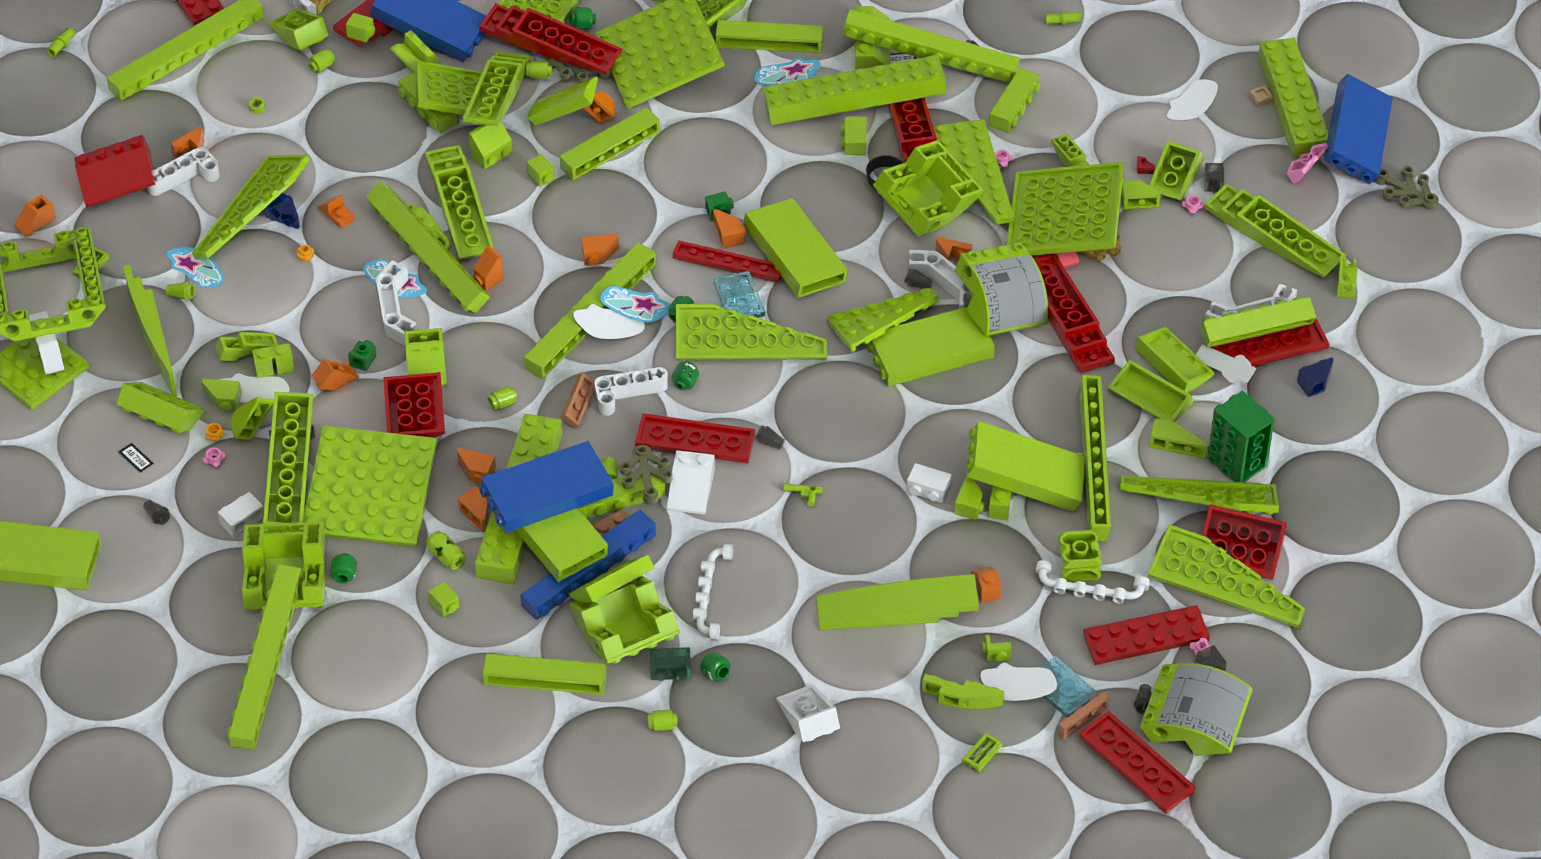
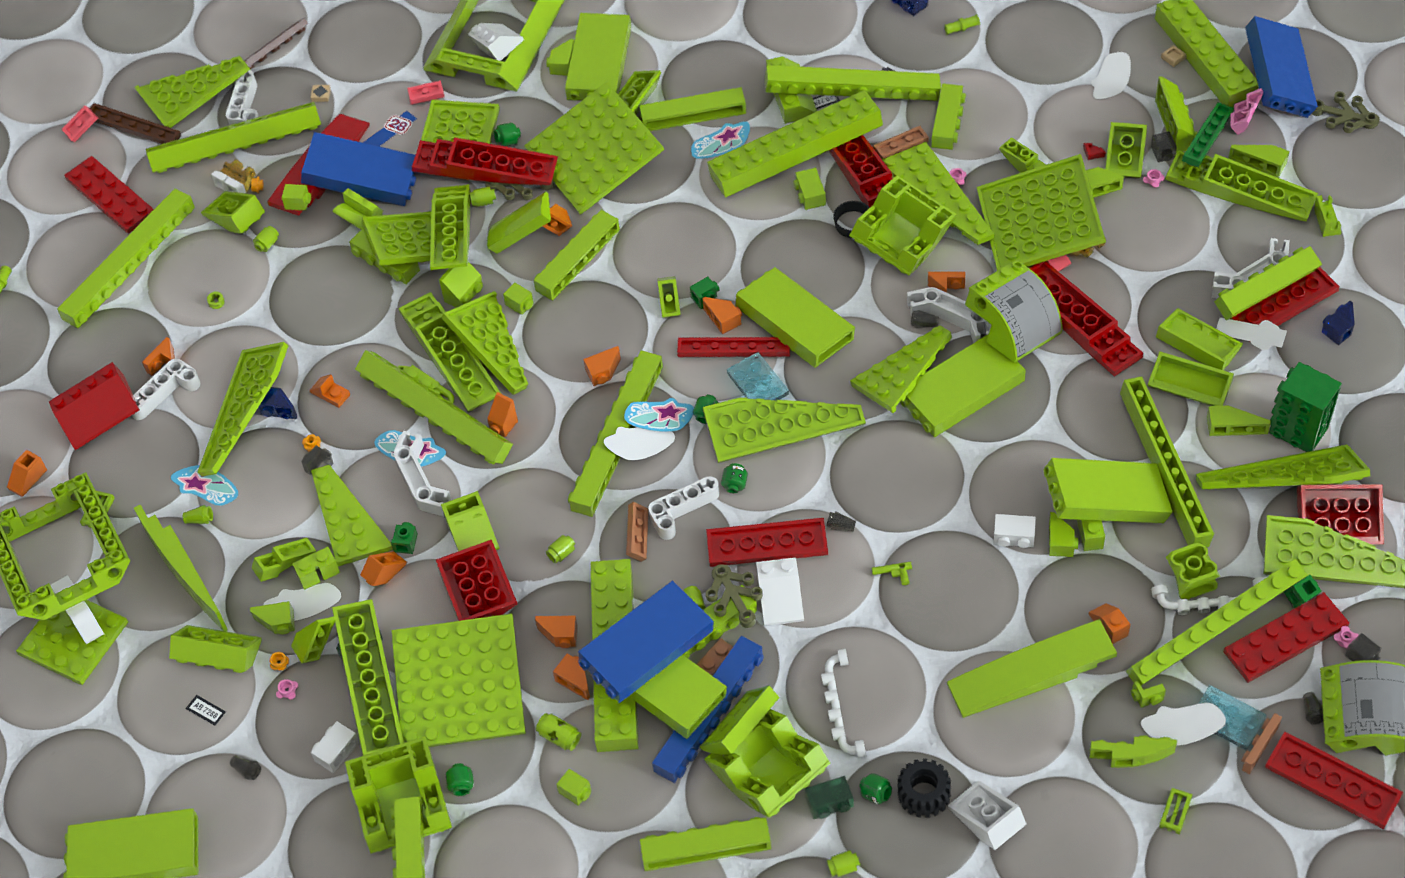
camera: 10 degrees left, 5 degrees up
(303, 267) = (315, 457): none -> clear smoke bracket
(315, 329) = (347, 522): none -> lime wing
(329, 9) = (257, 184): none -> light orange plate
(498, 191) = (485, 332): none -> lime wing
(683, 201) = (668, 296): none -> lime slope
(758, 688) = (924, 773): none -> black tyre
(959, 114) = (901, 142): none -> nougat plate
(1082, 604) = (1216, 623): none -> lime brick
(1177, 598) = (1302, 591): none -> green brick
(1237, 151) = (1174, 113): none -> lime slope
(1258, 175) = (1207, 134): none -> green plate
(1305, 209) = (1261, 157): none -> lime slope

